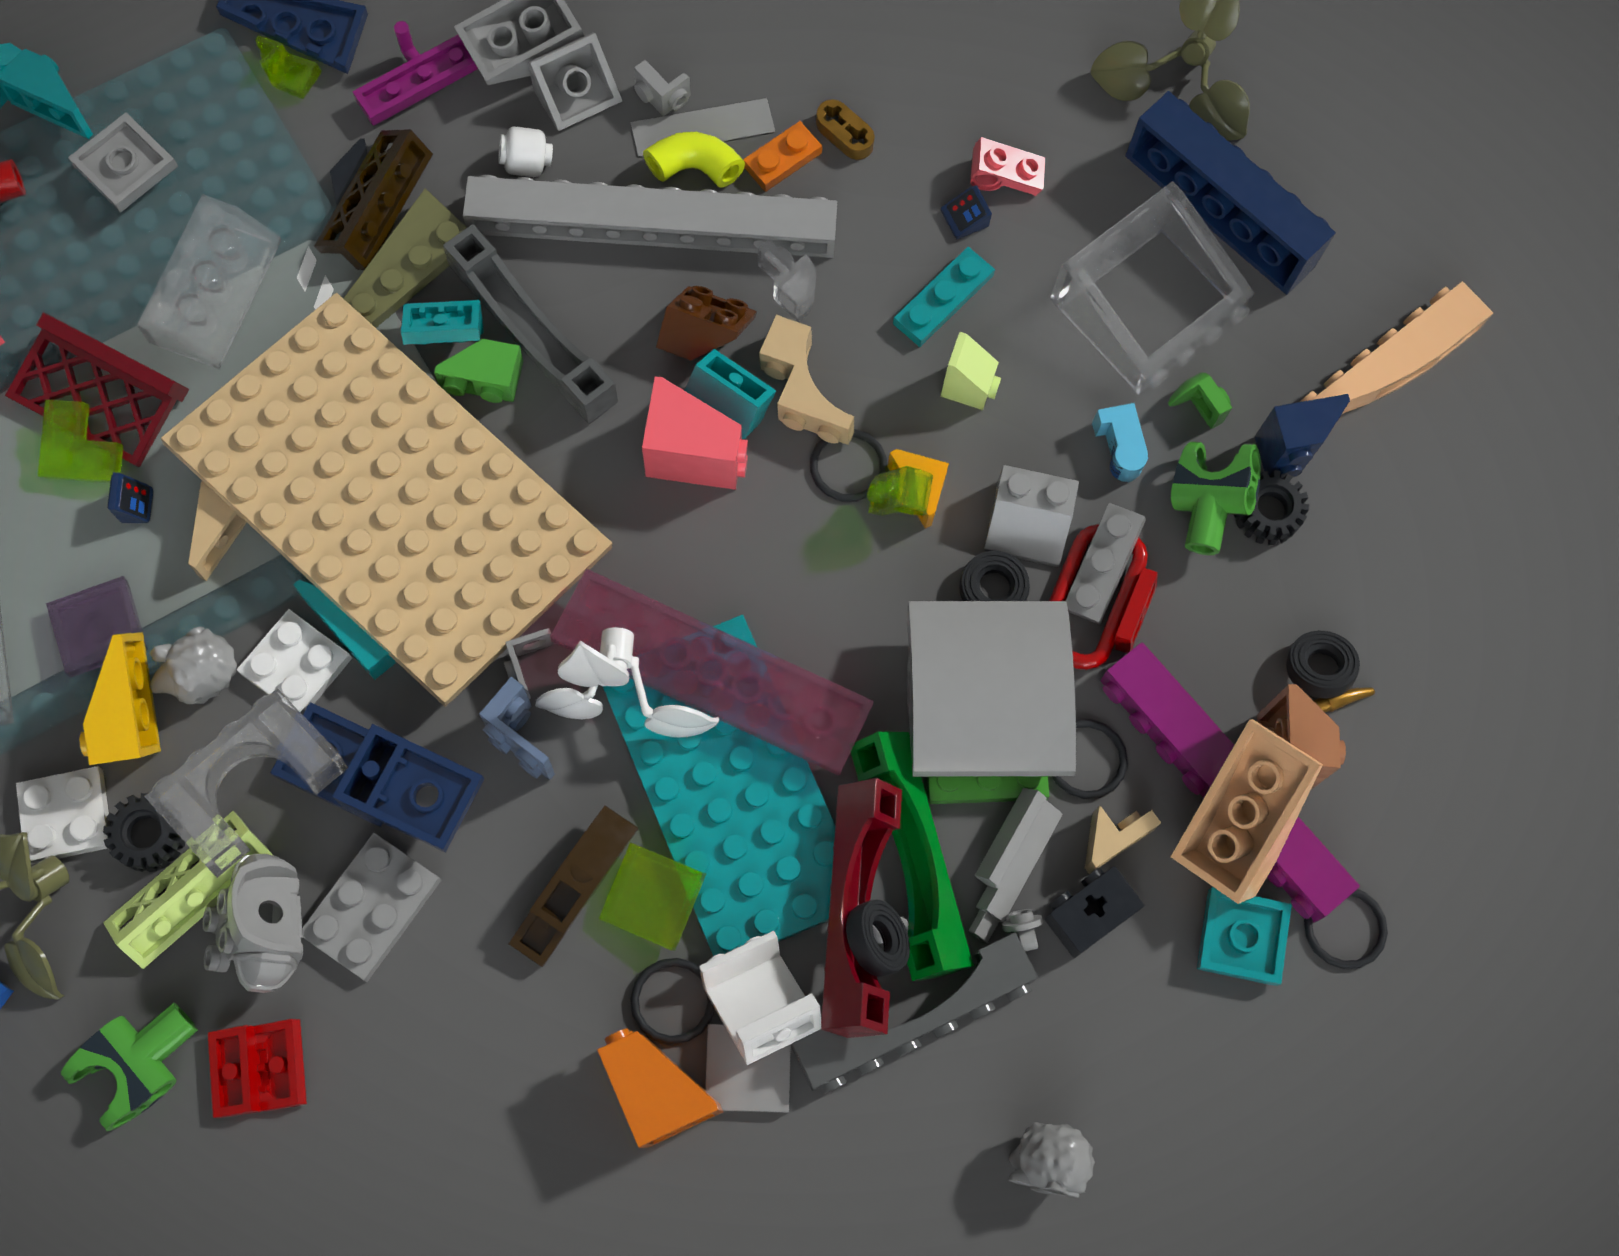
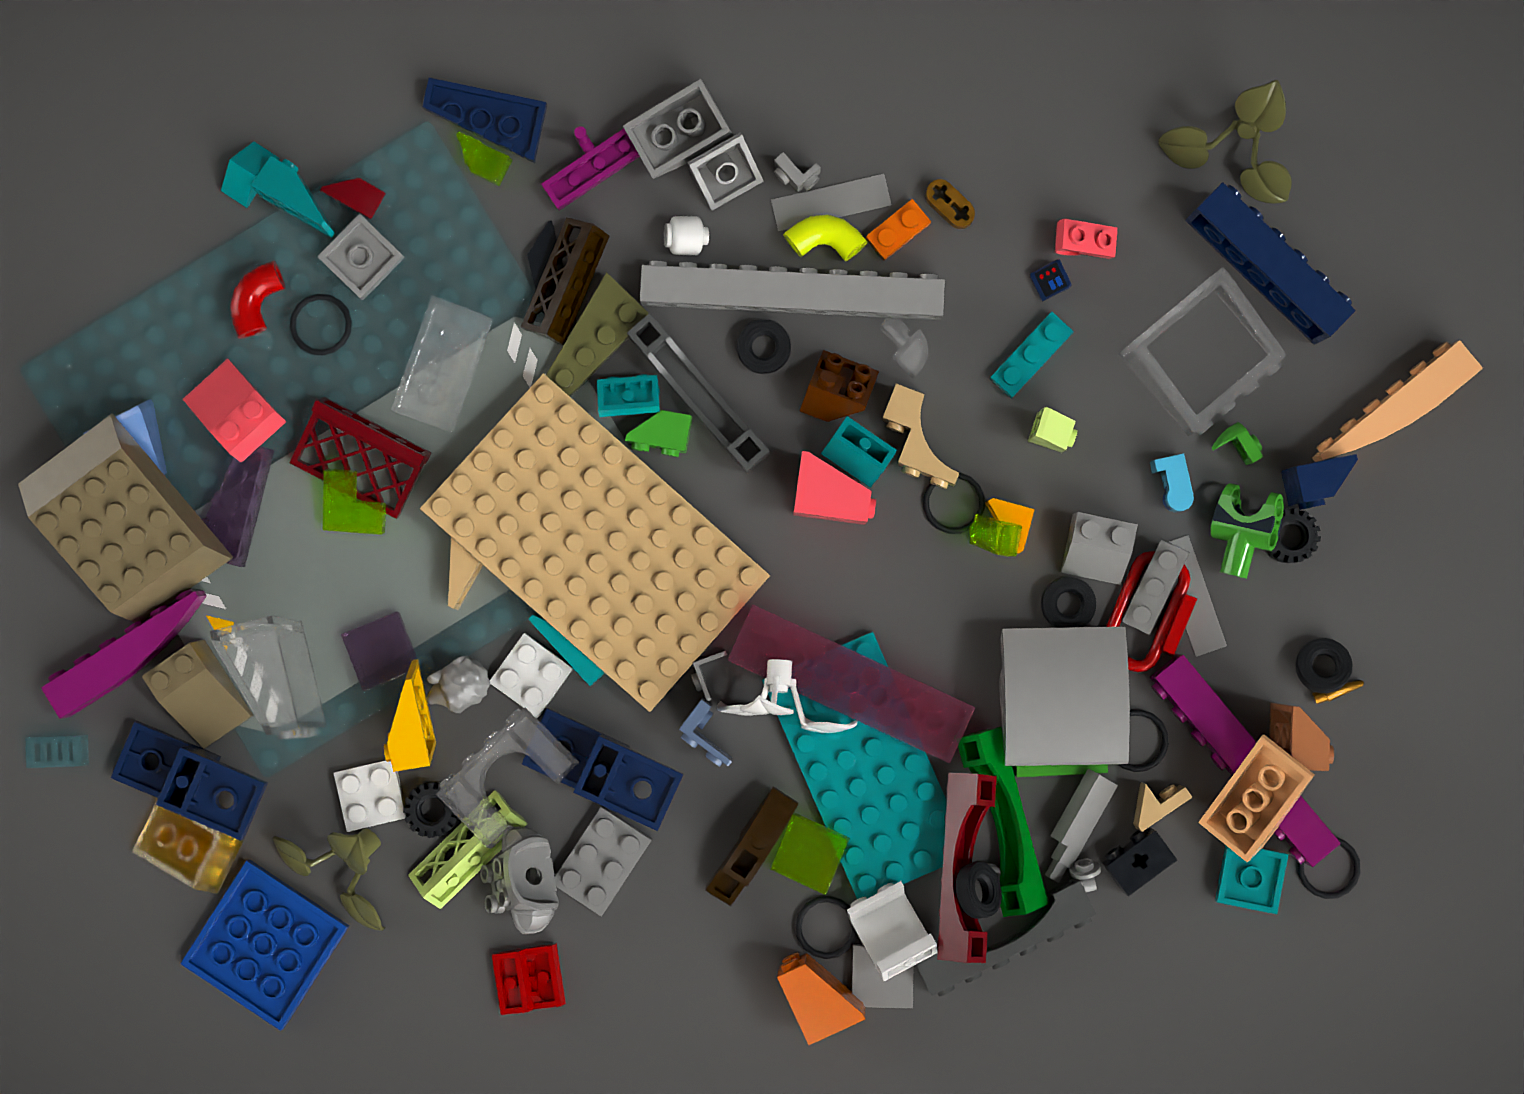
camera: 10 degrees right, 15 degrees up
(72, 268) = (338, 345): none -> black piece
(123, 94) = (356, 195): none -> dark red slope
(129, 499) = (396, 548): slope -> none
(134, 1061) = (442, 975): bright green connector -> none
(609, 258) = (758, 364): none -> black tyre
(1052, 1160) = (1103, 1044): light grey animal -> none
(1165, 615) = (1203, 623): none -> light grey sticker

